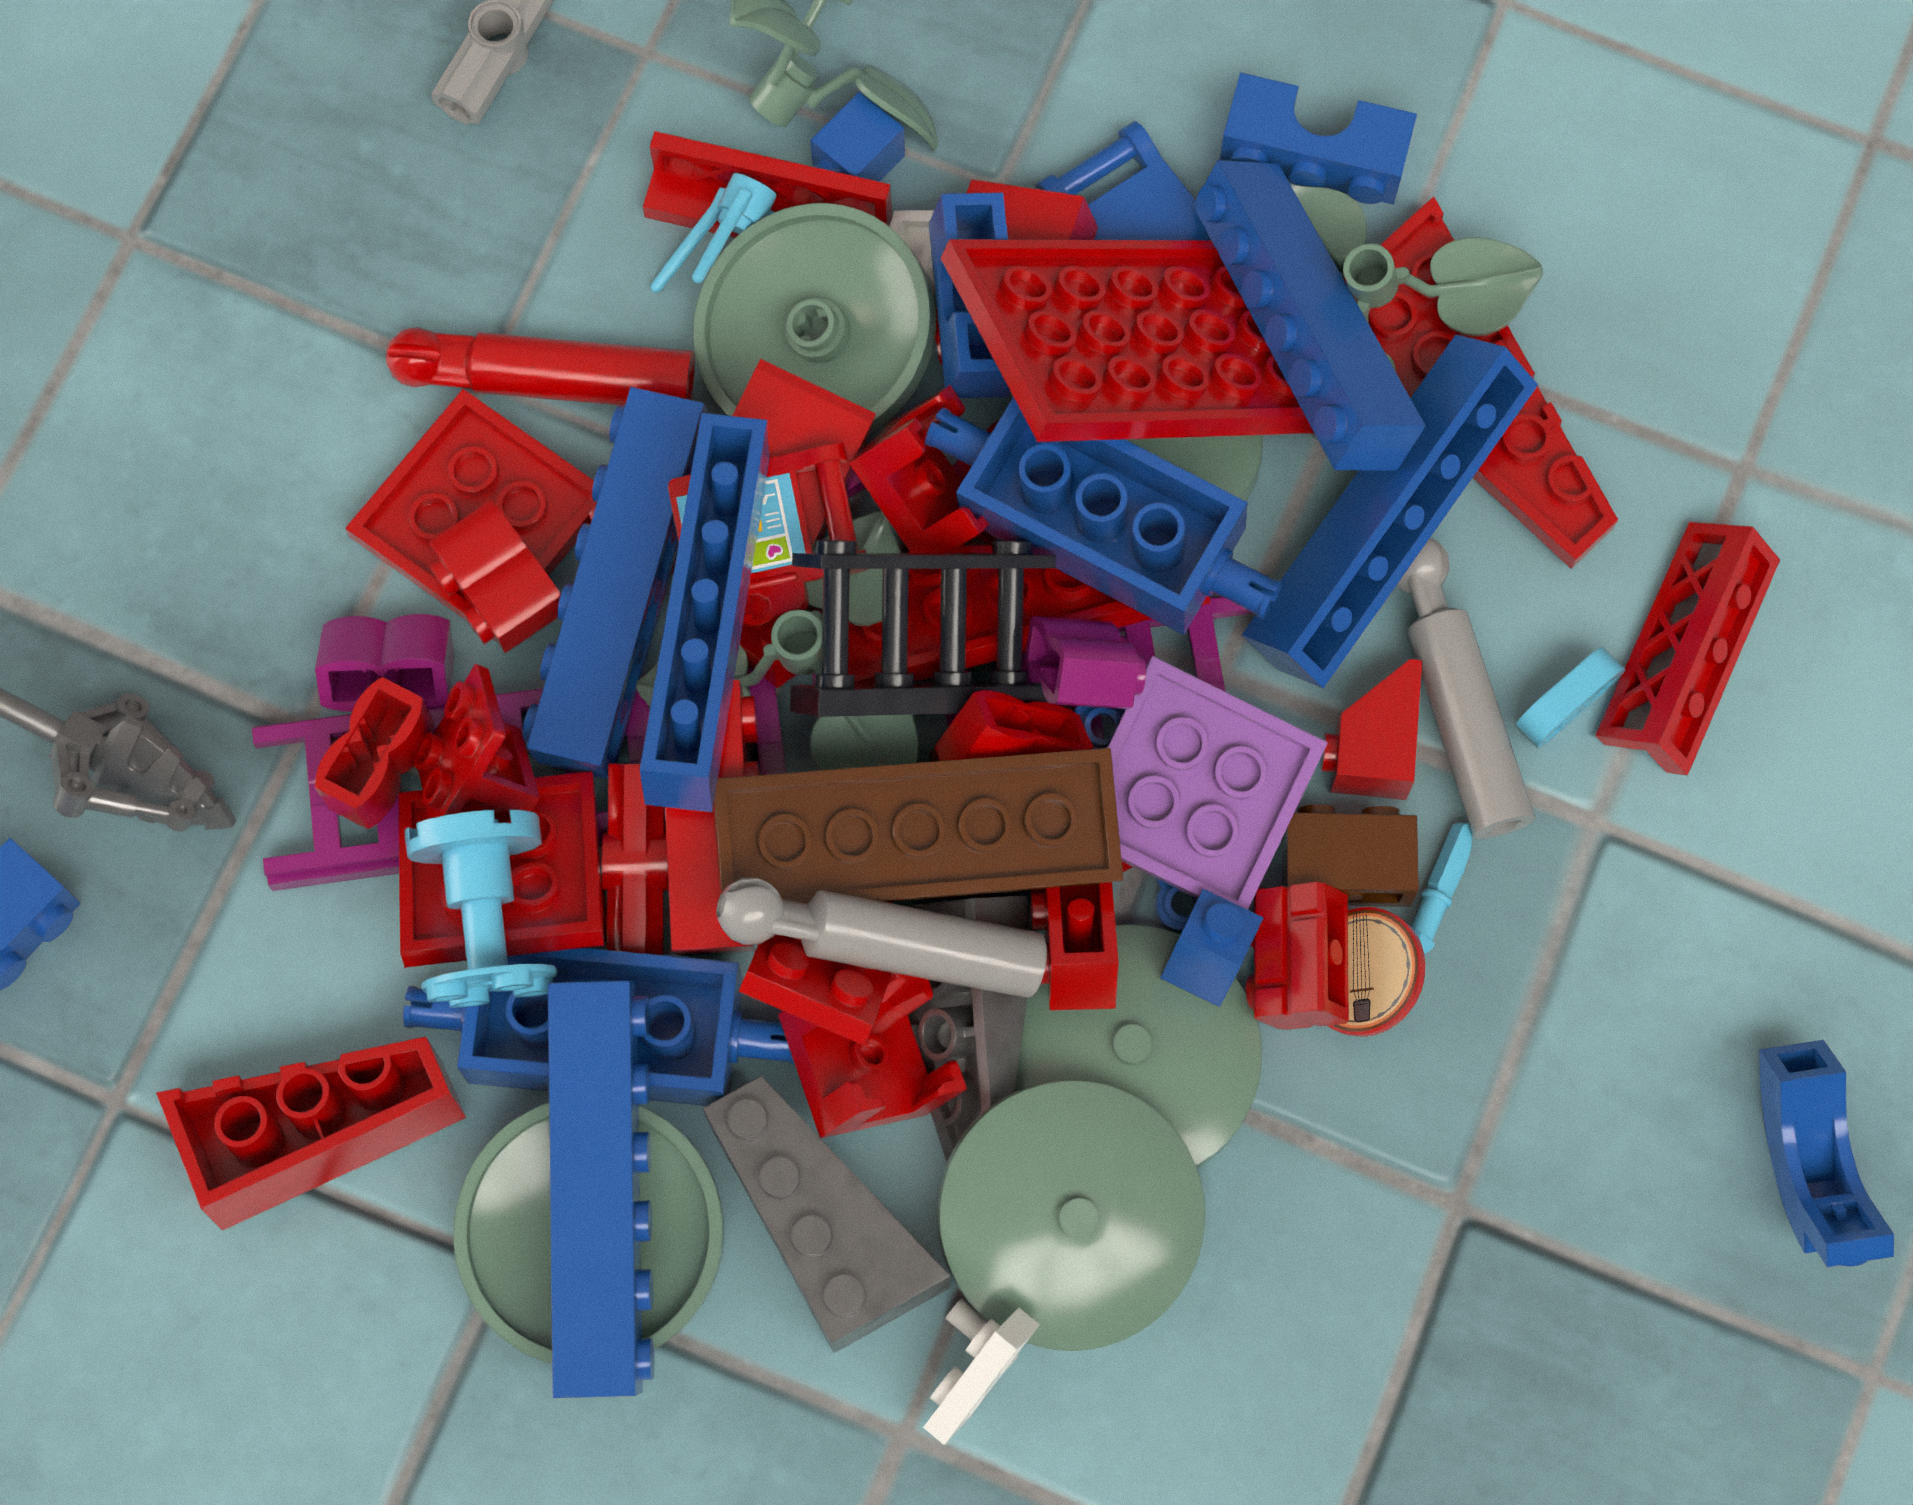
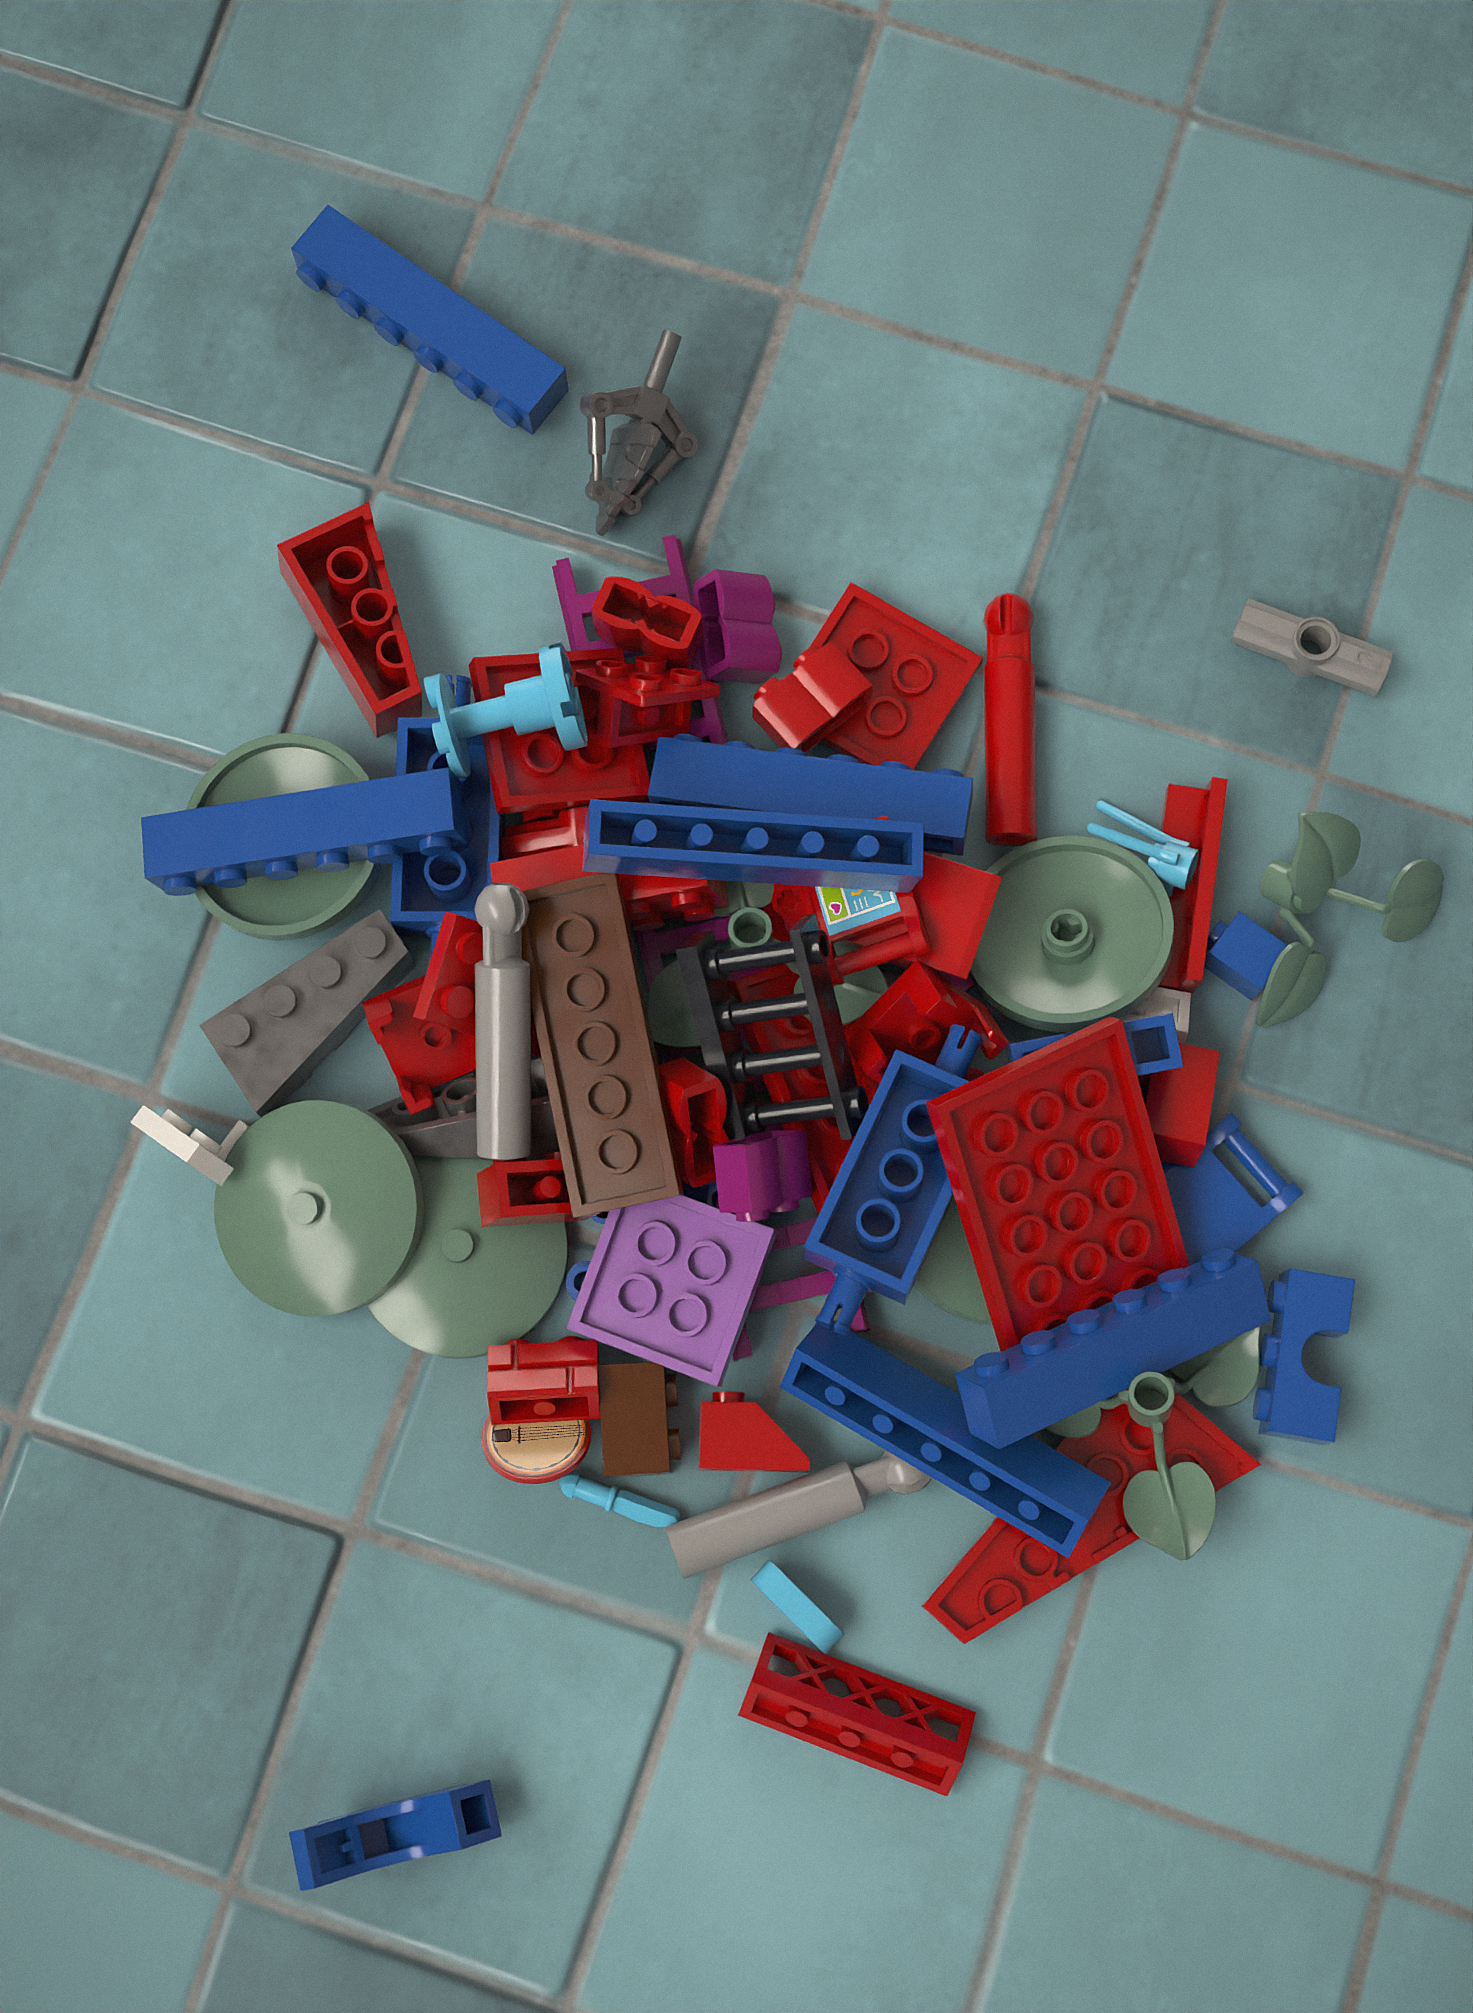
camera: 85 degrees right, 5 degrees up
(1211, 947) = (540, 1303): blue brick -> none

